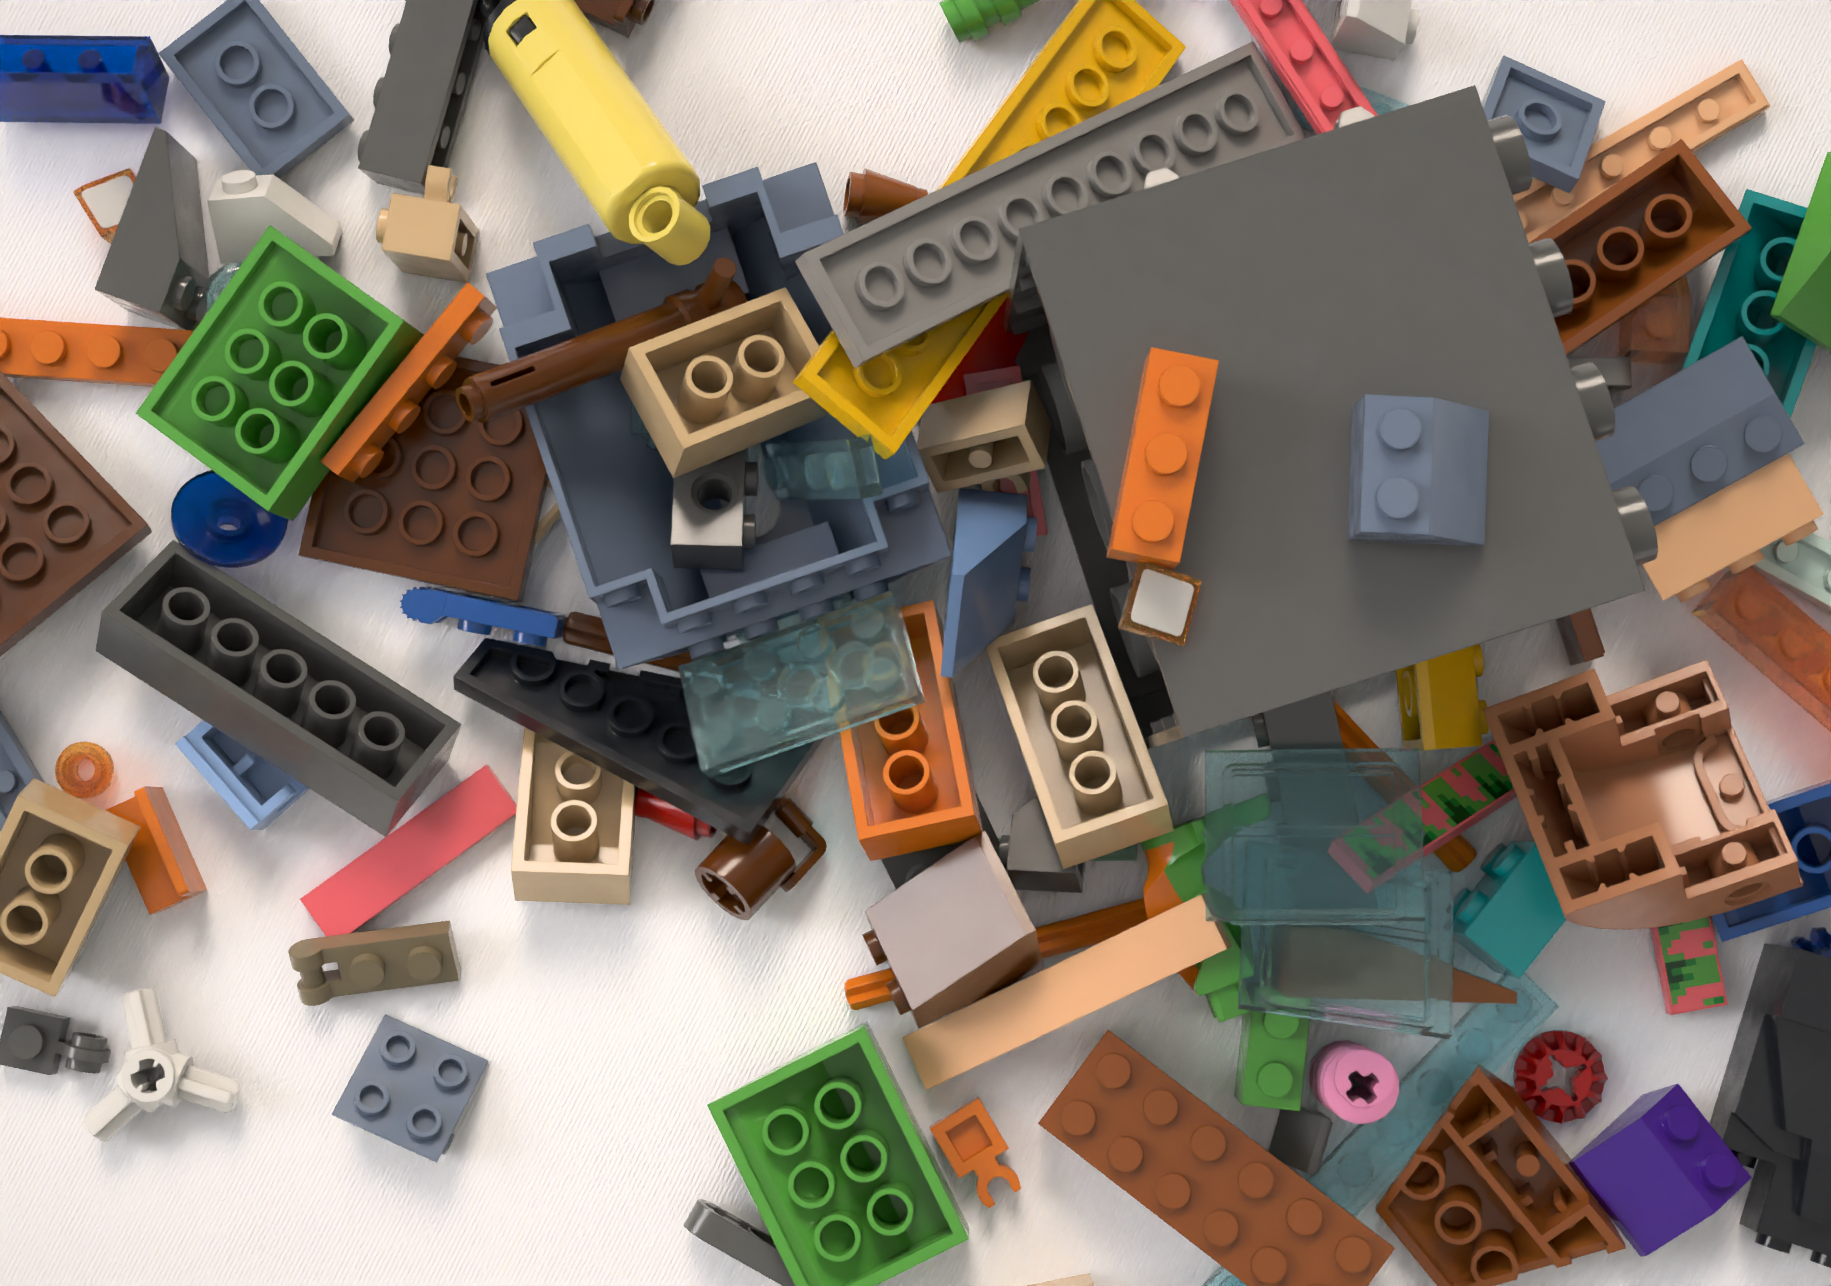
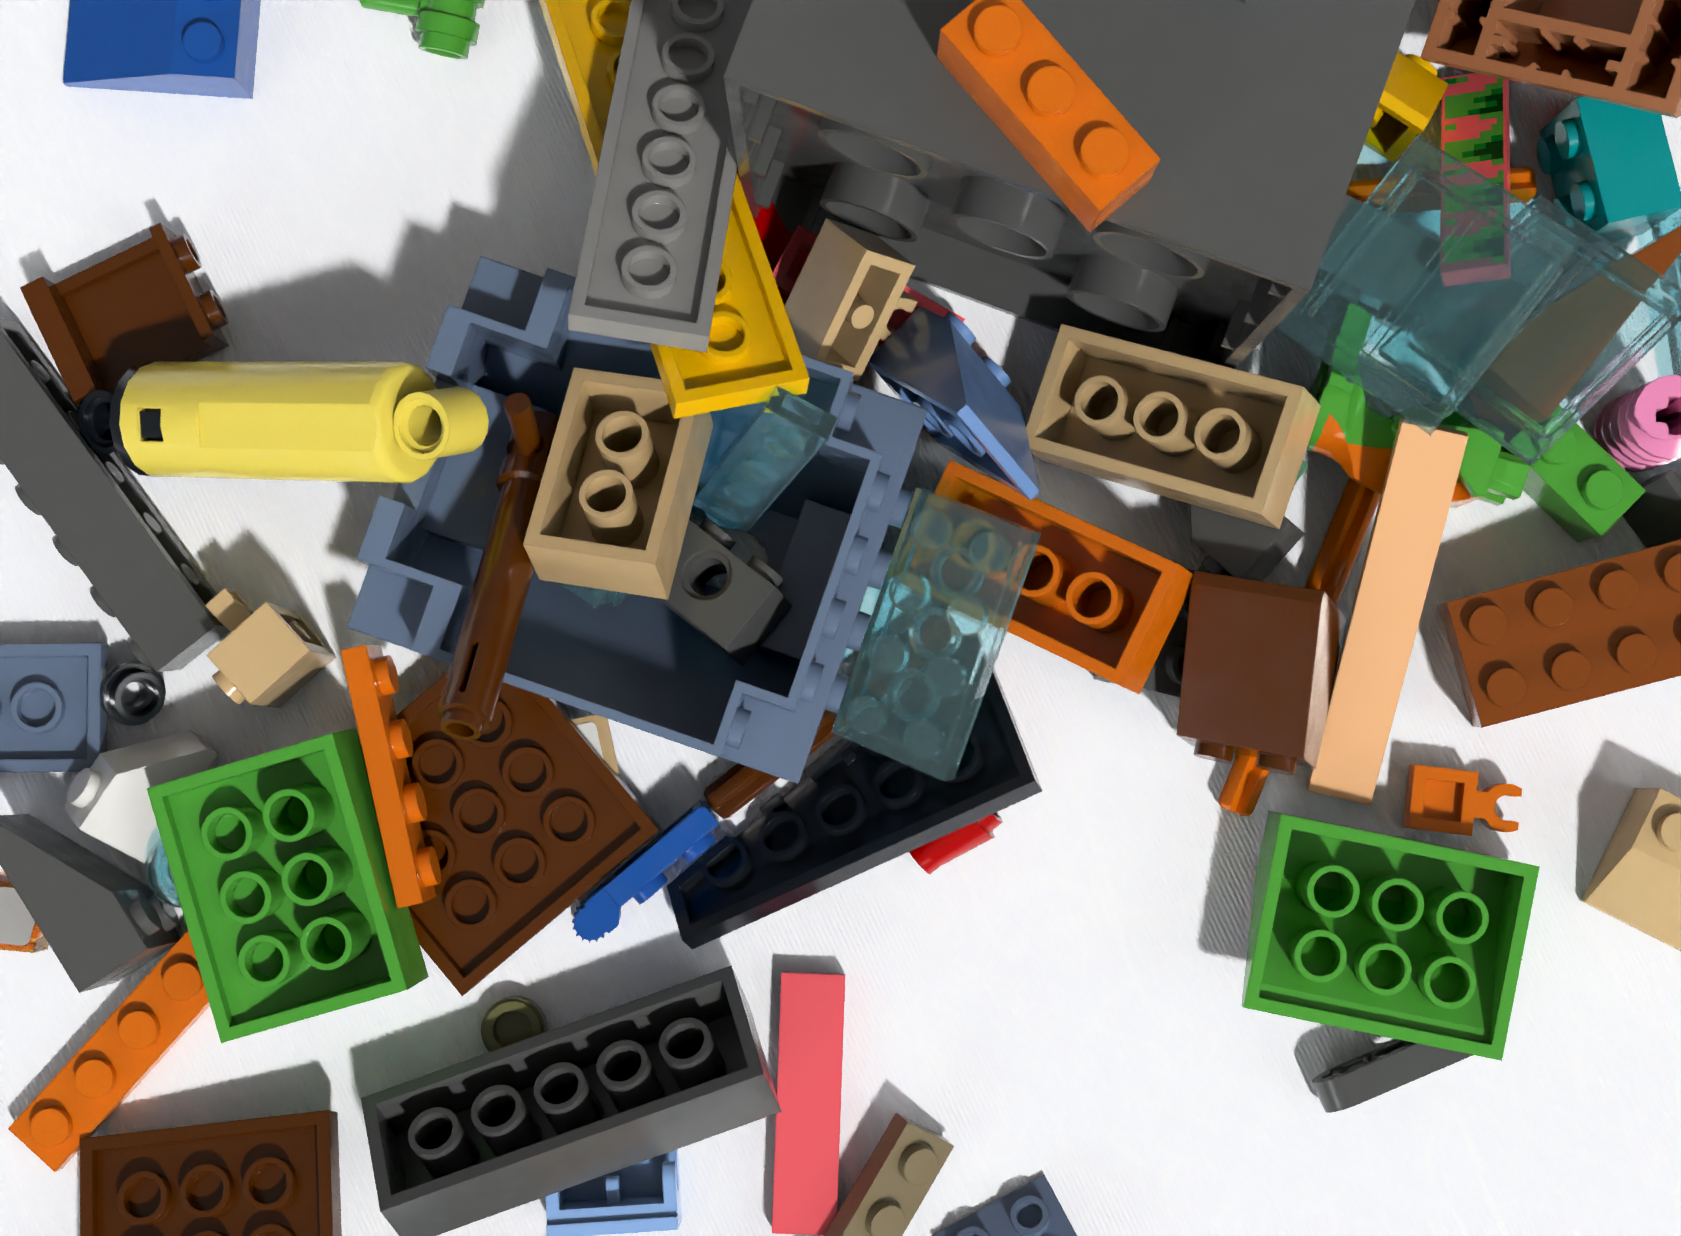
camera: 55 degrees left, 0 degrees up
(211, 502) = (352, 1036): clear blue dish -> none
(309, 604) = (512, 1021): none -> olive tile
(332, 178) = (145, 705): none -> black plate
(571, 828) = (899, 938): tan slope -> none
(746, 875) = (1064, 817): reddish brown piece -> none
(875, 195) = (551, 233): dark orange cone -> none
(1159, 603) = (1171, 216): white slope -> none

